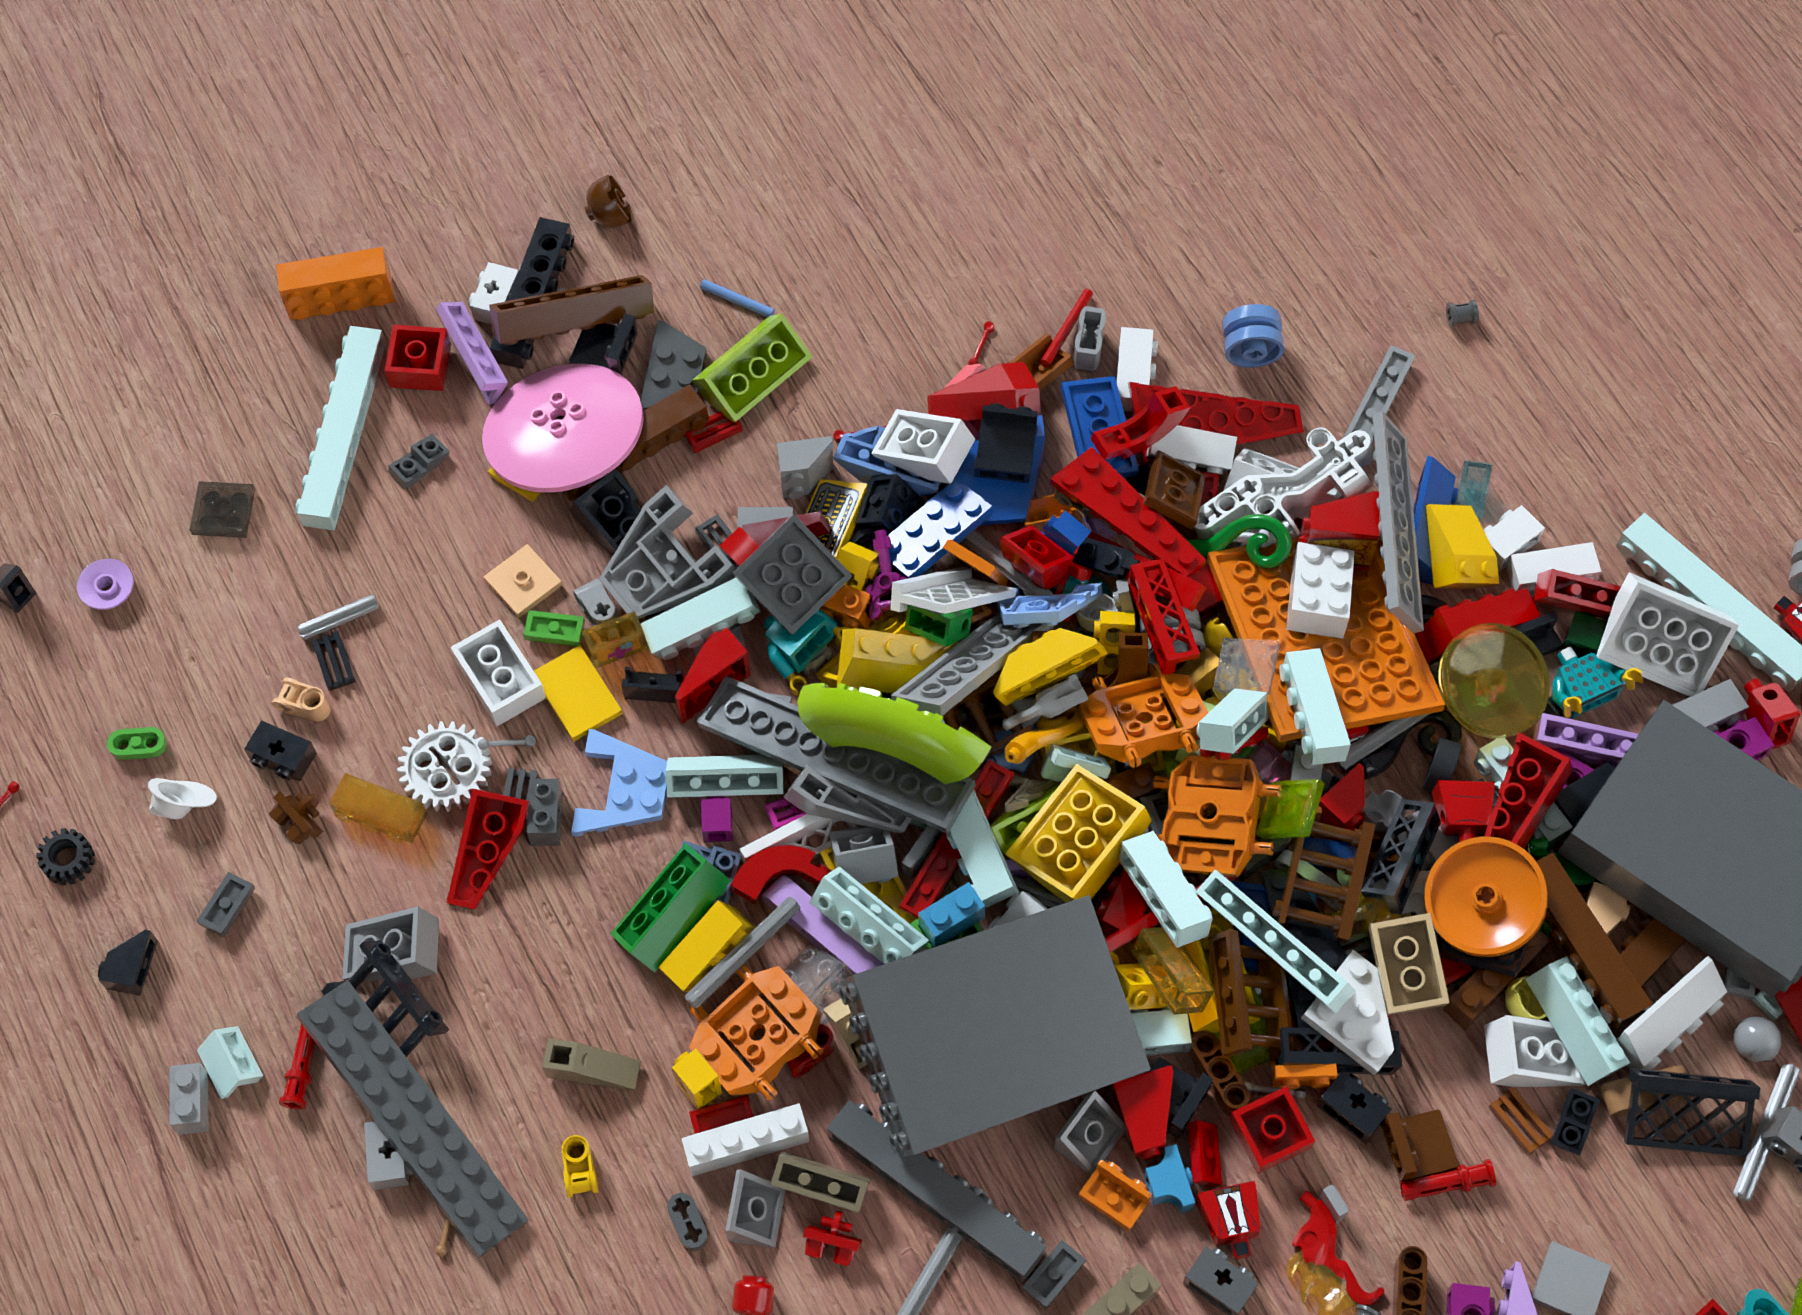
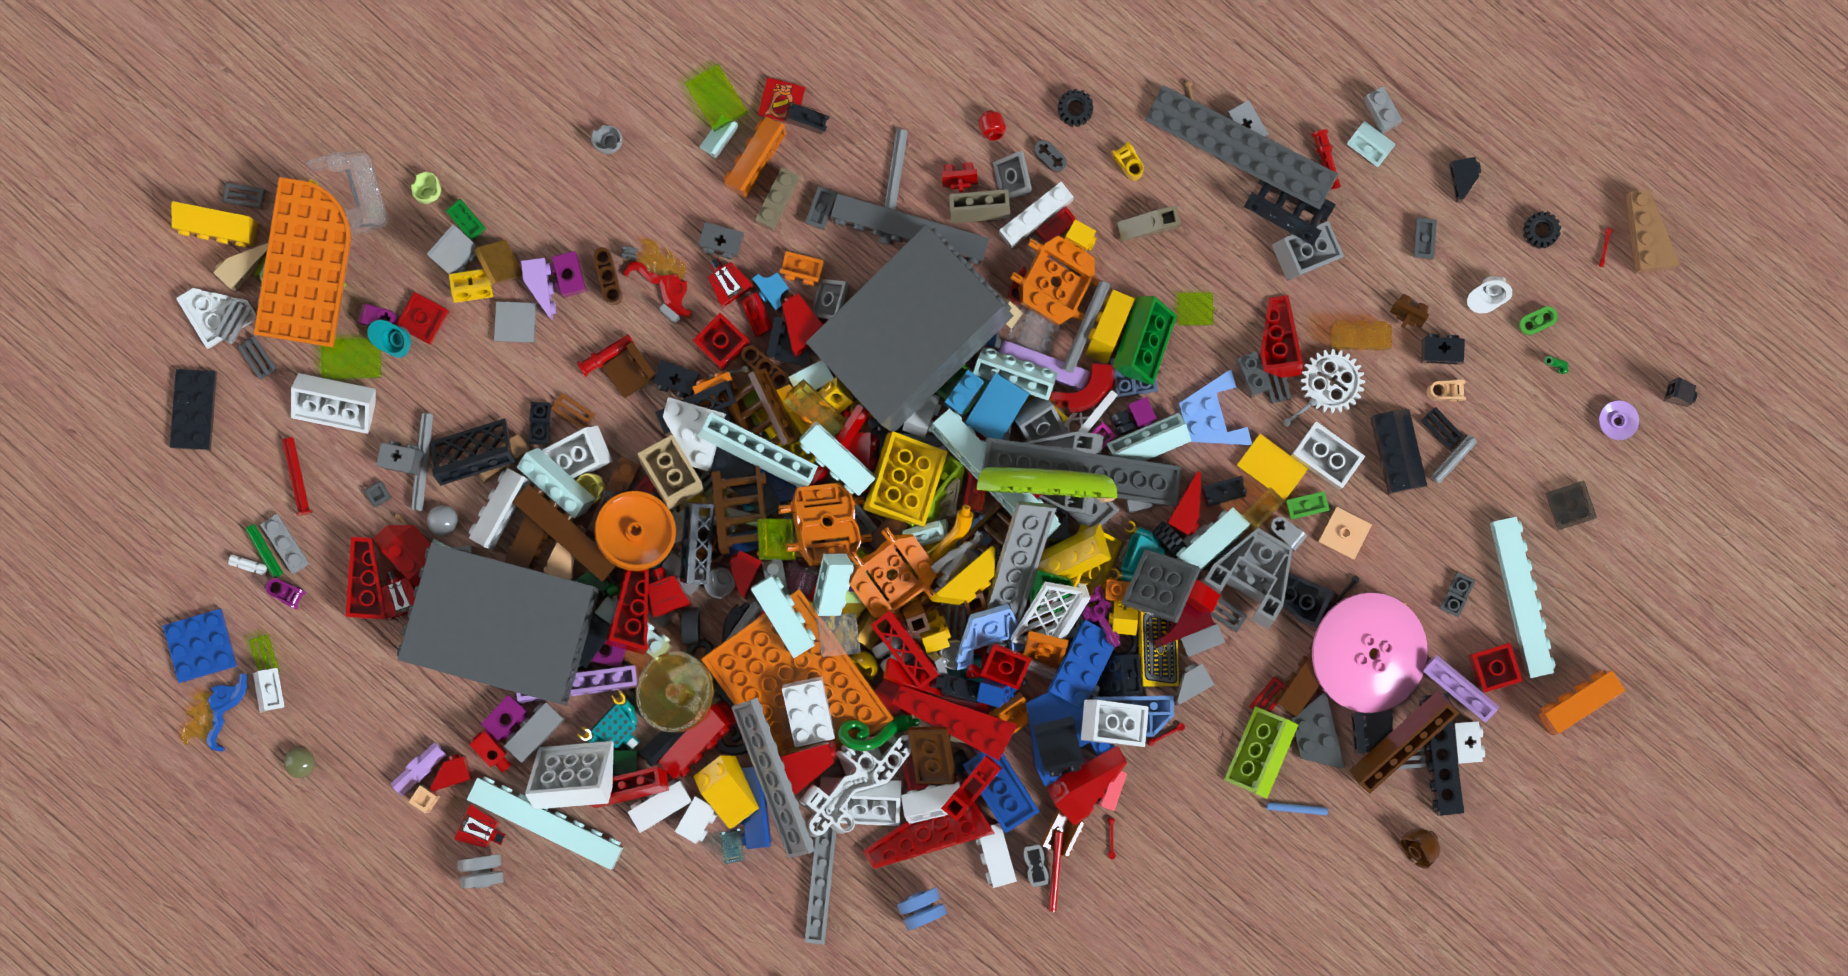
camera: 160 degrees right, 20 degrees up
(139, 680) = (1557, 363): none -> green arm
(404, 650) = (1398, 451): none -> black slope
(538, 523) = (1355, 579): none -> black hinge
(580, 932) = (1195, 309): none -> clear neon green piece
(606, 1264) = (1081, 97): none -> black tyre
(748, 817) = (1122, 422): none -> black wheel
(754, 641) = (1169, 538): none -> black tyre
(913, 881) = (997, 407): none -> dark azure tile

